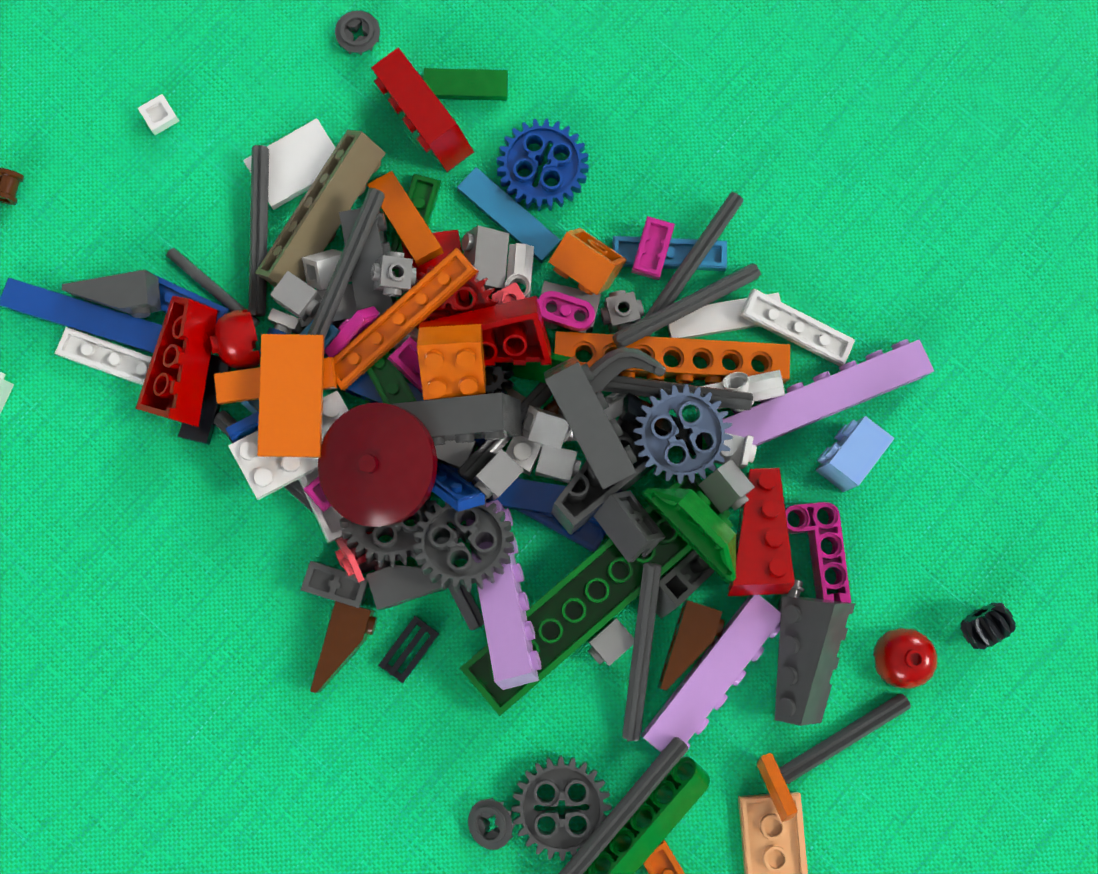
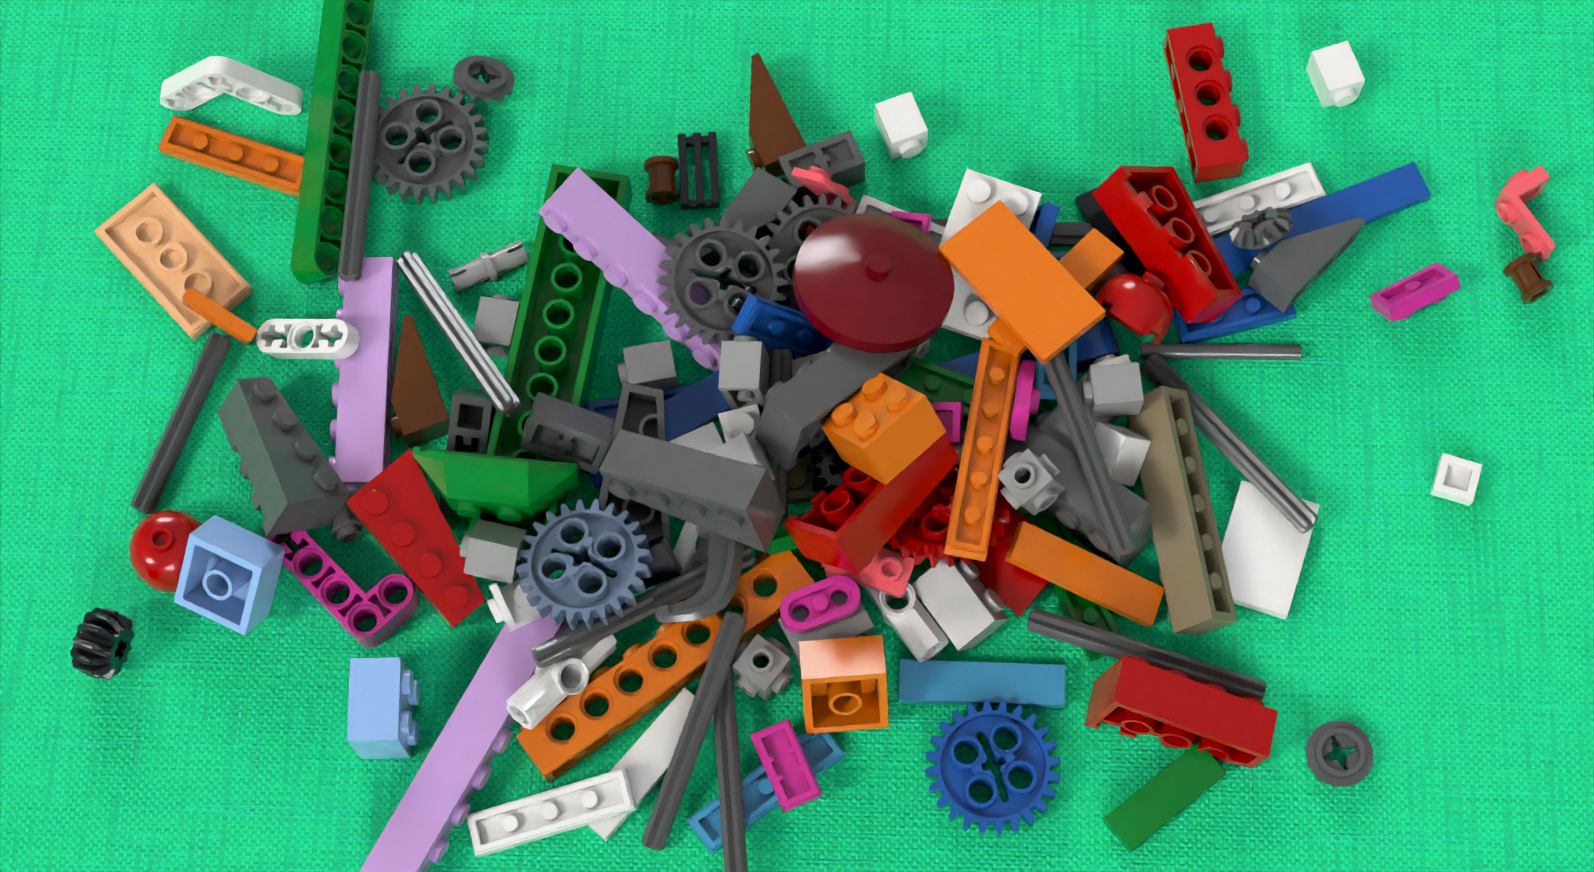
camera: 150 degrees right, 10 degrees down
(75, 229) = (1415, 292): none -> dark pink plate
(77, 456) = (1207, 157): none -> red brick
(123, 317) = (1261, 228): none -> dark grey gear
(266, 572) = (901, 126): none -> white brick
(411, 156) = (1119, 646): none -> dark grey axle
(437, 659) = (662, 180): none -> reddish brown bush
(543, 540) = (649, 365): none -> light grey brick
(585, 690) = (488, 266): none -> light grey pin
(723, 720) = (319, 347): none -> white beam
(887, 605) = (229, 574): none -> light blue brick

